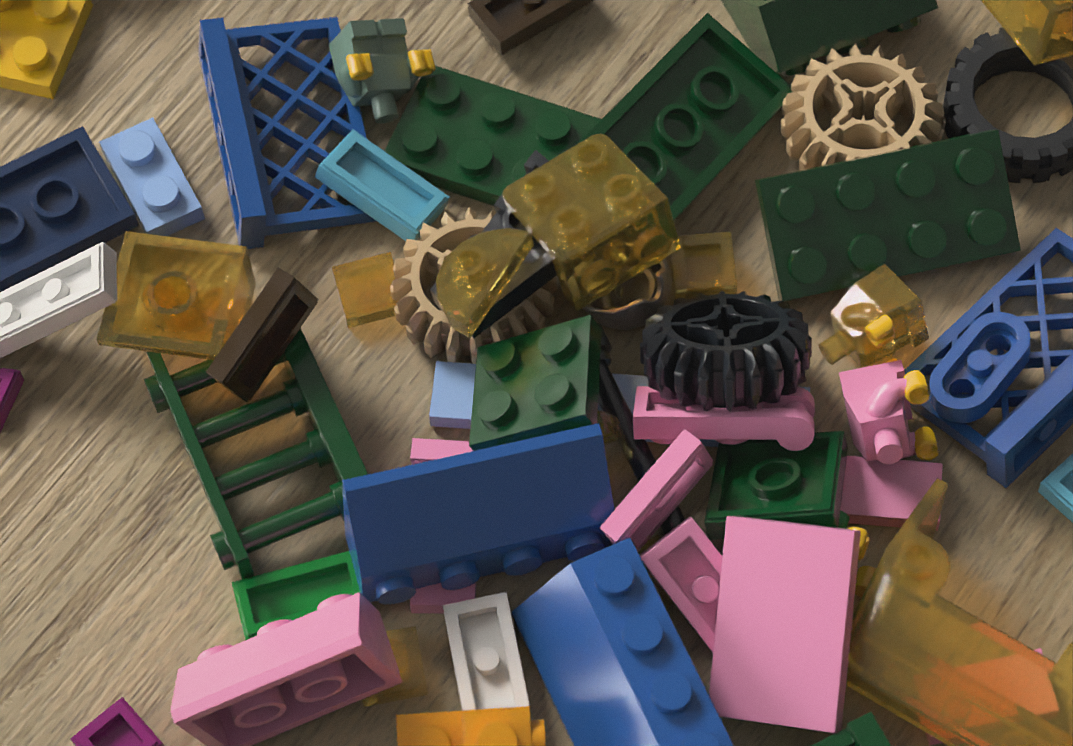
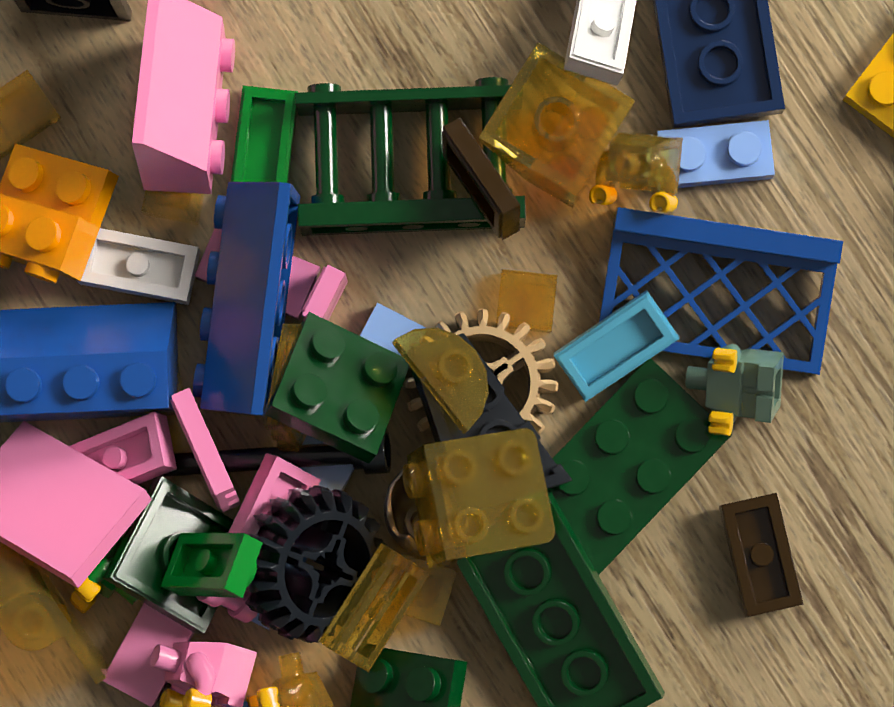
camera: 110 degrees right, 20 degrees up
(190, 207) = (640, 164): none -> clear yellow piece
(742, 278) = (369, 604): none -> clear yellow tile
(774, 414) = (212, 564): none -> green plate

